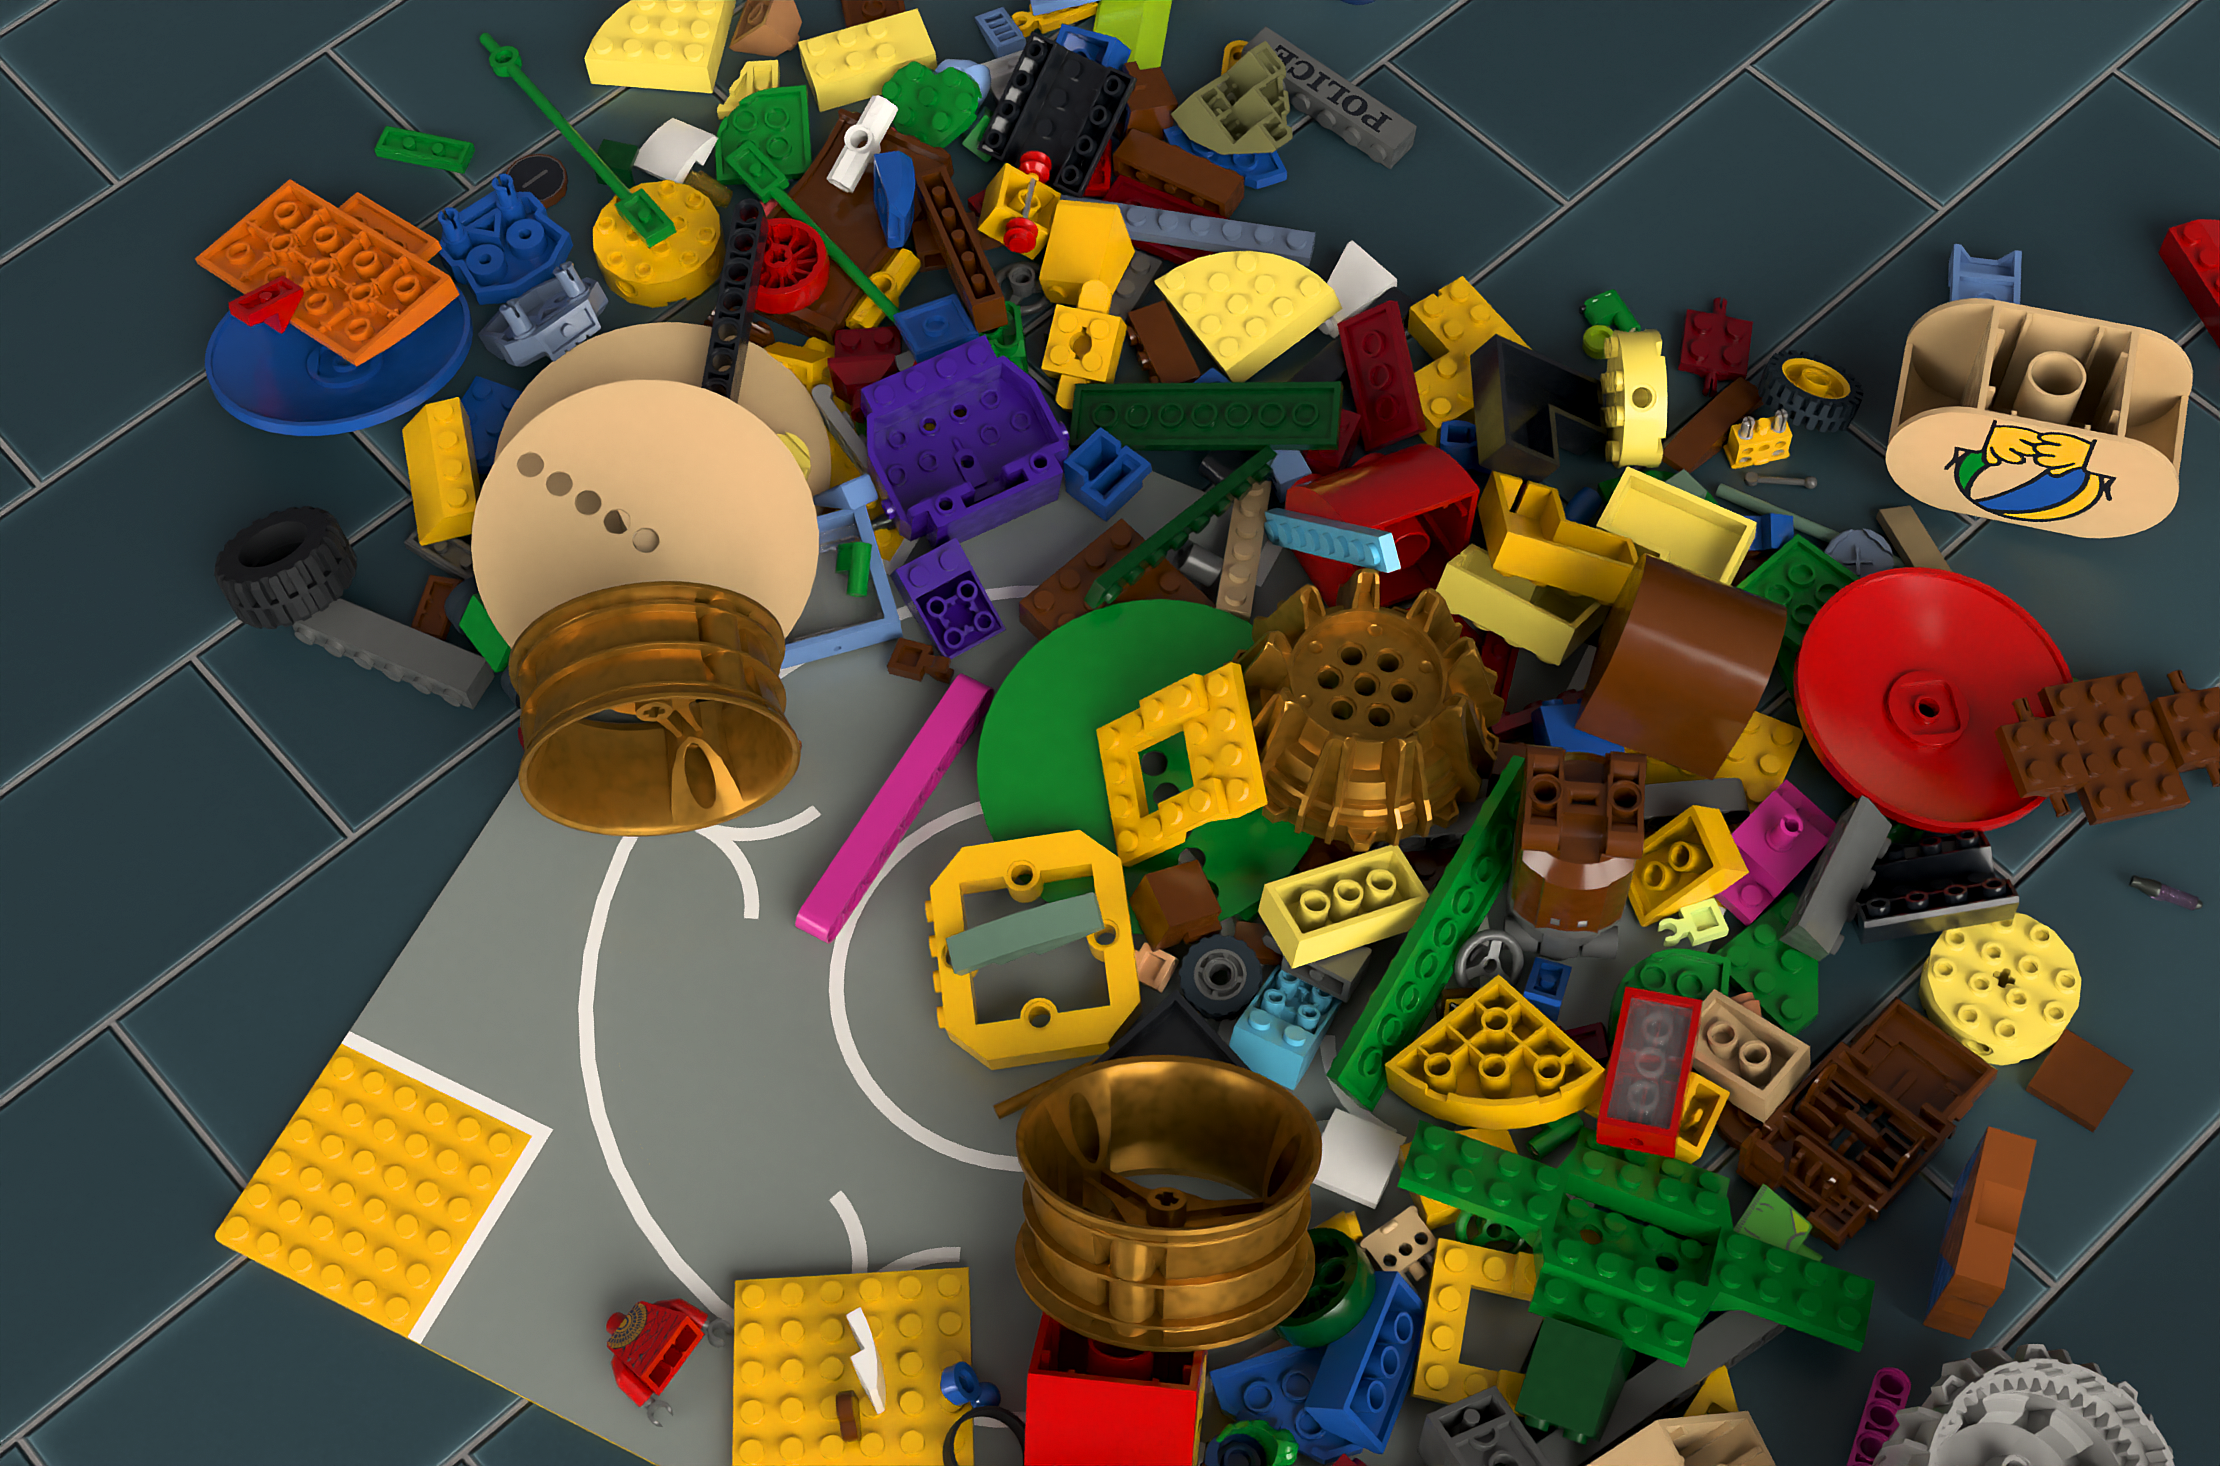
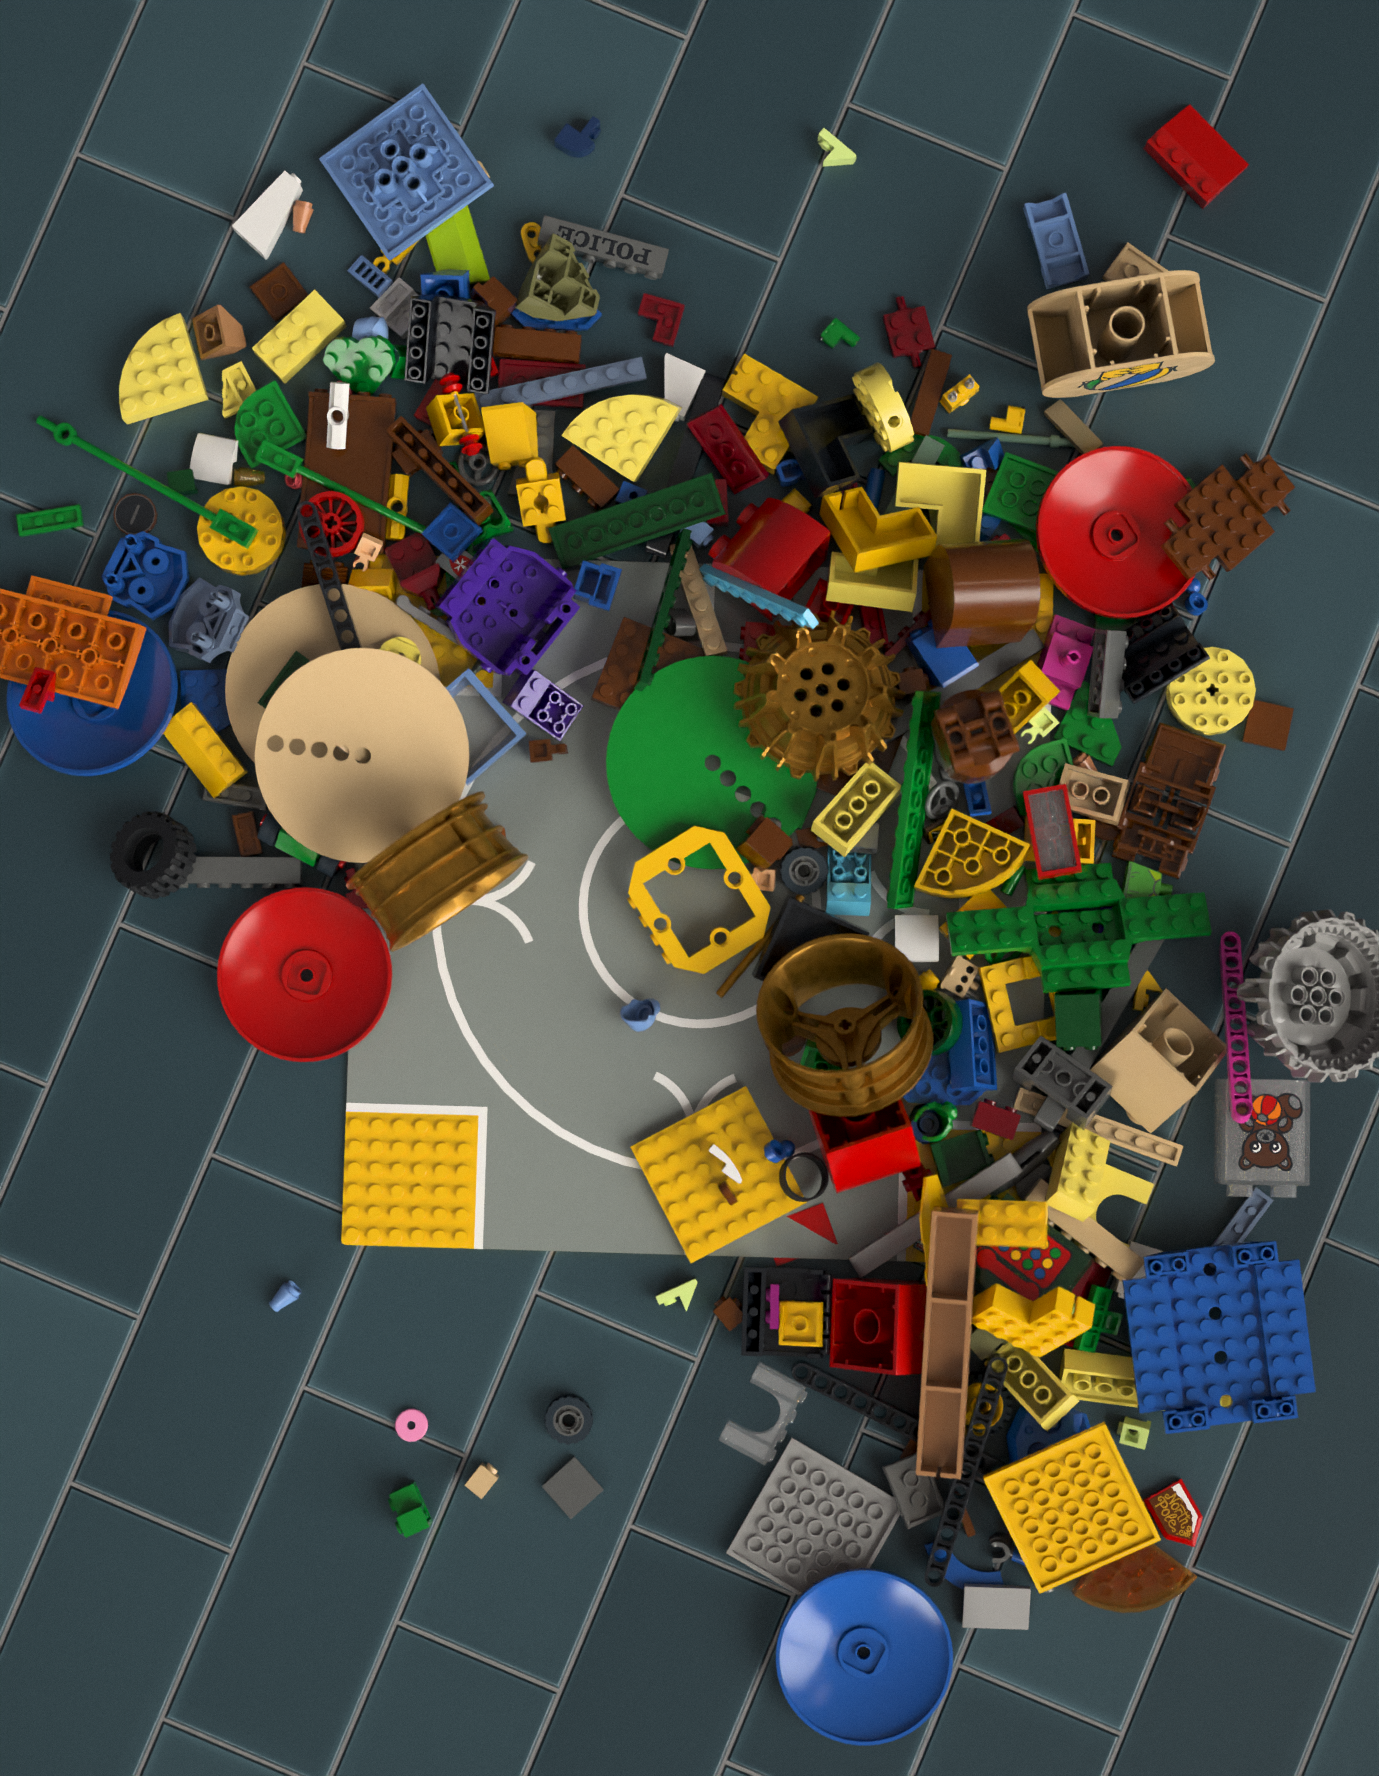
camera: 30 degrees left, 25 degrees up
(82, 1274) = (285, 1295): none -> medium blue cone
(358, 770) = (264, 966): none -> red dish
(653, 1346) = (609, 1200): red torso -> none
(811, 314) = (367, 550): none -> light nougat plate
(849, 494) = (453, 664): medium blue slope -> none
(854, 560) = (482, 707): green piece -> none
(856, 1083) = (640, 1014): none -> medium blue hair
(894, 195) = (379, 448): blue slope -> none
(894, 809) = (578, 845): dark pink beam -> none
(1025, 932) = (695, 900): sand green slope -> none
(1220, 754) = (756, 757): yellow piece -> none
(1375, 207) = (666, 313): none -> dark red plate
(1594, 340) = (839, 357): lime tile -> none
(1705, 103) = (839, 152): none -> yellowish green slope
(1752, 478) = (963, 416): dark grey hinge -> none
(1810, 390) = (978, 349): black wheel -> none
(1823, 510) = (1012, 423): none -> yellow piece
(1861, 552) = (1046, 449): sand blue tile -> none
(1979, 1233) = (1248, 848): dark orange tile -> none
(2021, 851) = (1196, 602): none -> blue plate
(2163, 892) = (1276, 593): piece -> none

